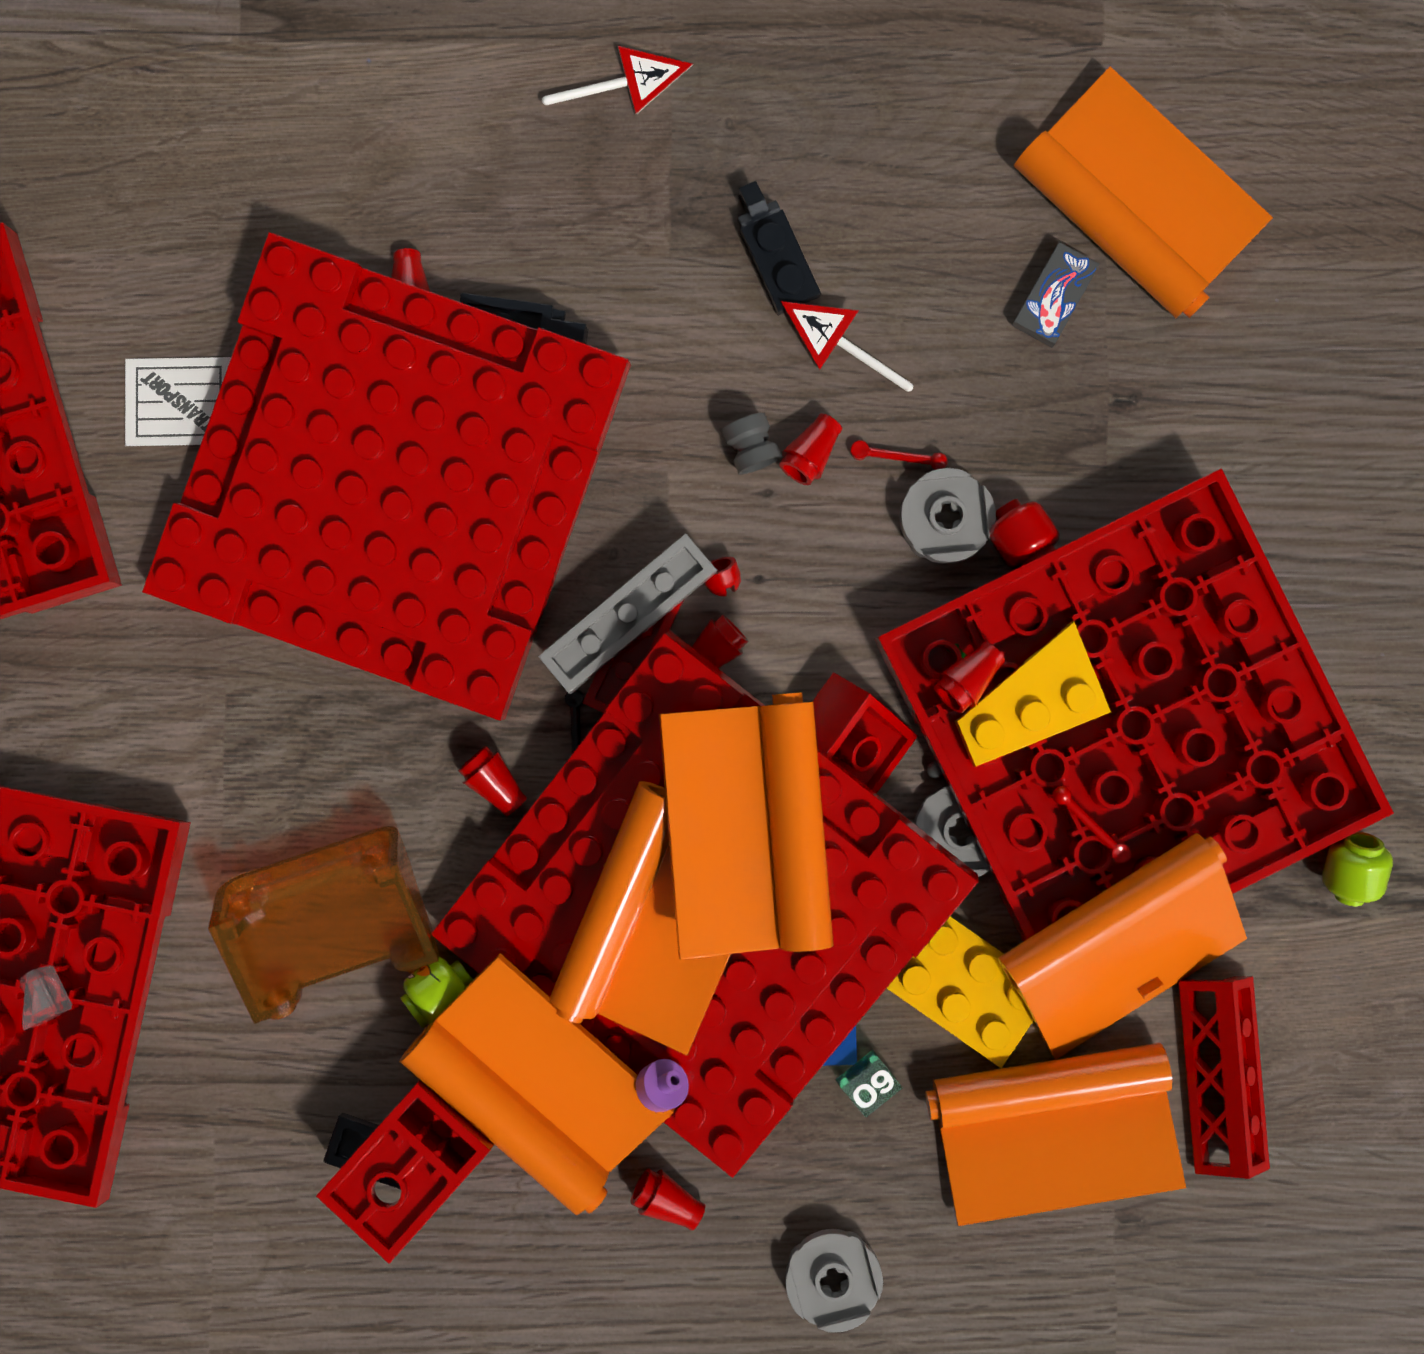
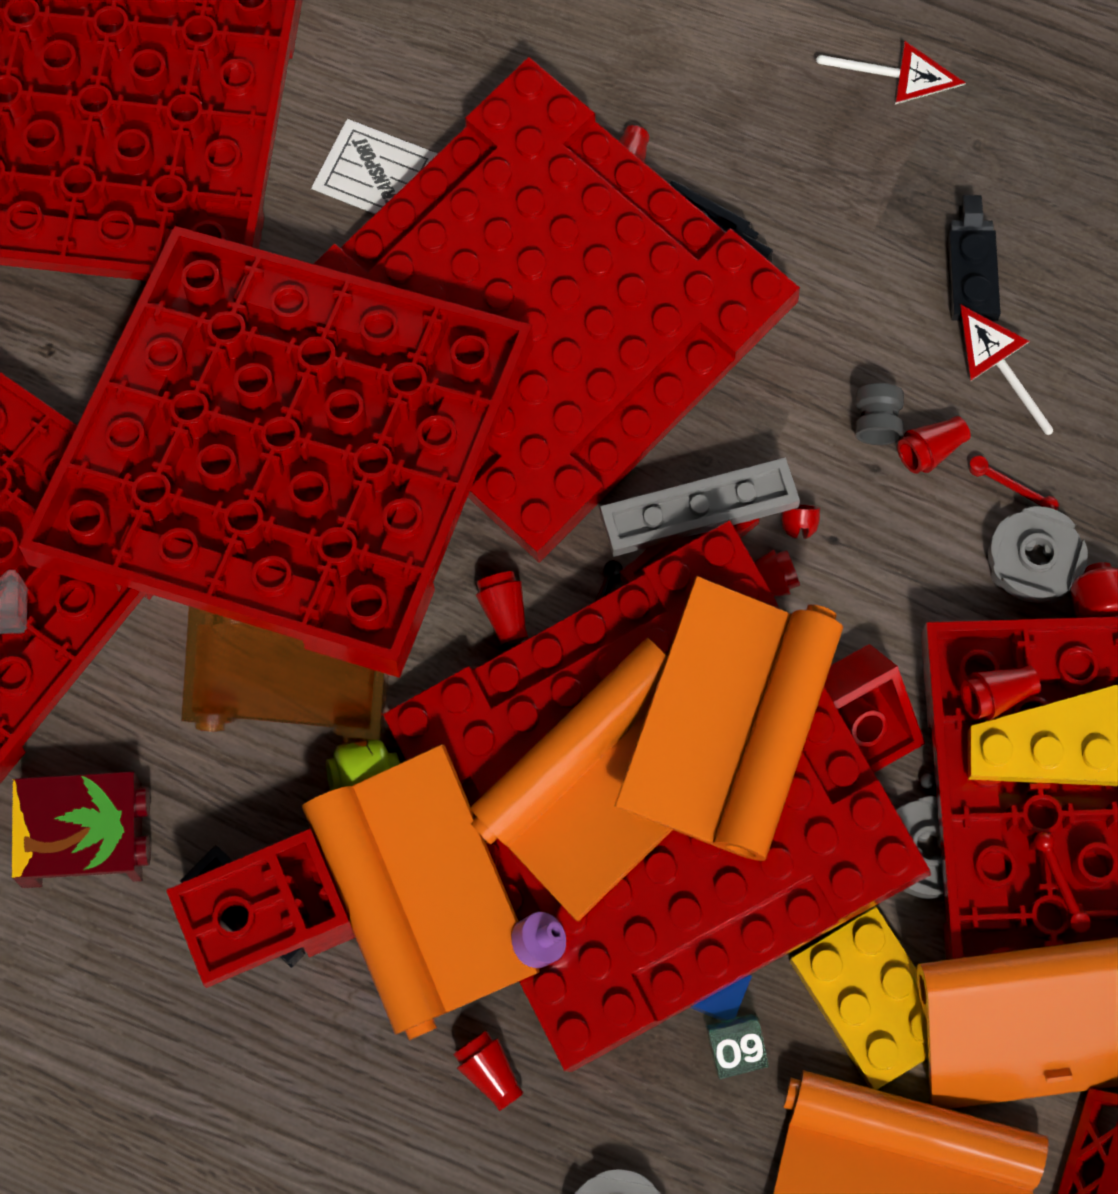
camera: 25 degrees right, 15 degrees down
(212, 1157) = (79, 827): none -> dark red panel
(218, 740) = (281, 447): none -> red plate

